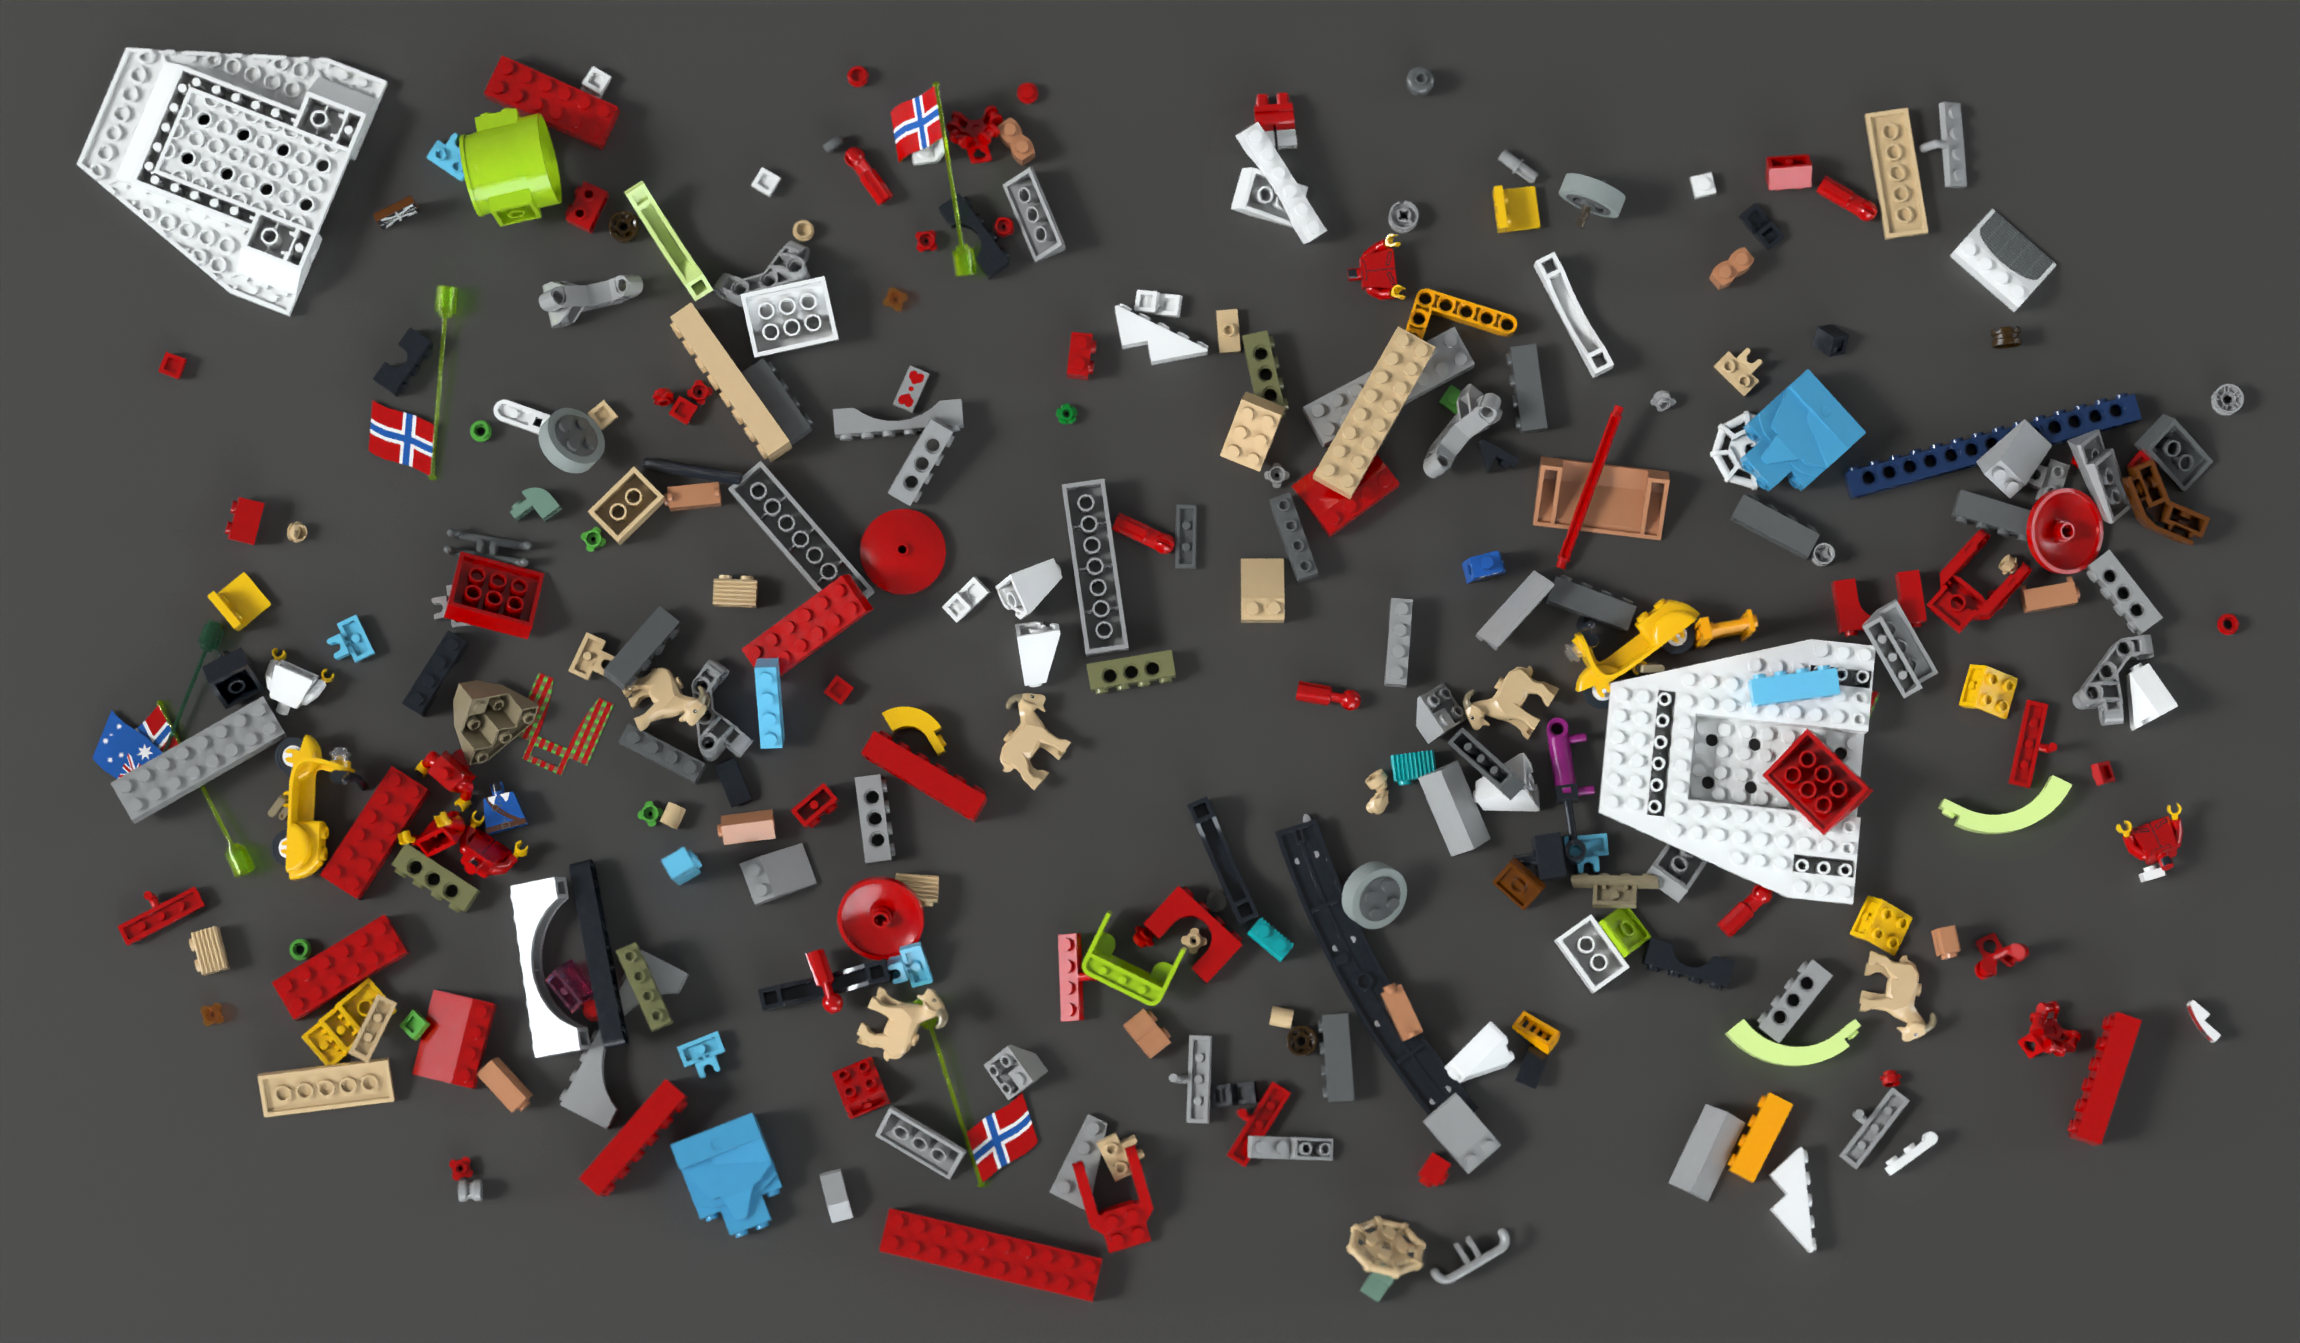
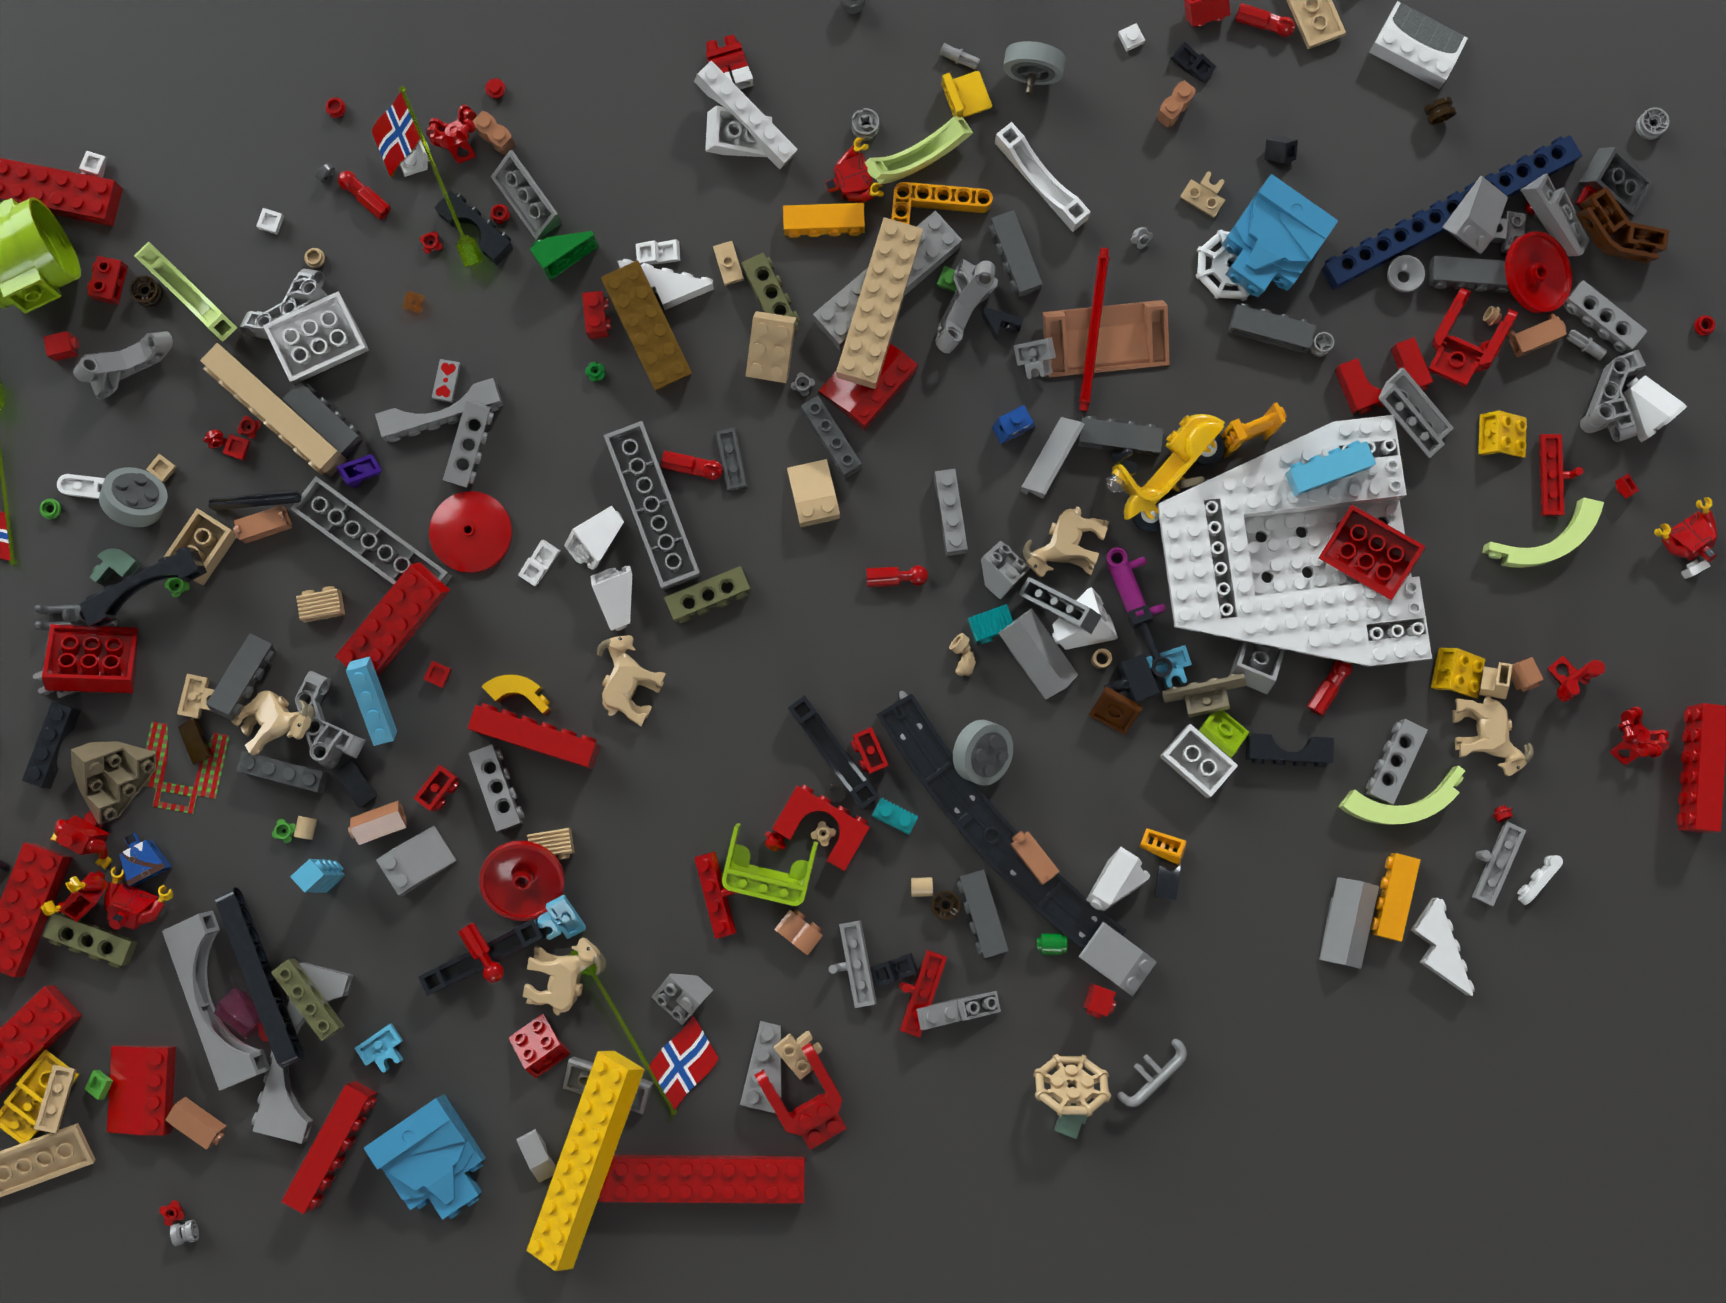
camera: 15 degrees left, 0 degrees up
(517, 547) = (102, 607): none -> black arch
(527, 265) = (61, 345): none -> red brick
(579, 702) = (195, 741): none -> dark brown slope
(804, 463) = (359, 470): none -> dark purple slope
(886, 1207) = (585, 1160): none -> yellow brick
(1056, 284) = (562, 251): none -> green slope
(1130, 381) = (646, 325): none -> pearl gold brick
(1260, 868) = (870, 751): none -> red brick
(1337, 308) = (823, 219): none -> light orange brick
(1399, 1104) = (1051, 944): none -> green brick
(1453, 262) = (921, 154): none -> yellowish green arch
(1517, 820) = (1106, 653): none -> tan beam
(1523, 502) = (1036, 357): none -> light grey plate
(1915, 942) = (1496, 681): none -> tan piece
(1935, 493) = (1411, 267): none -> light grey piece
(2099, 617) = (1586, 344): none -> light grey axle

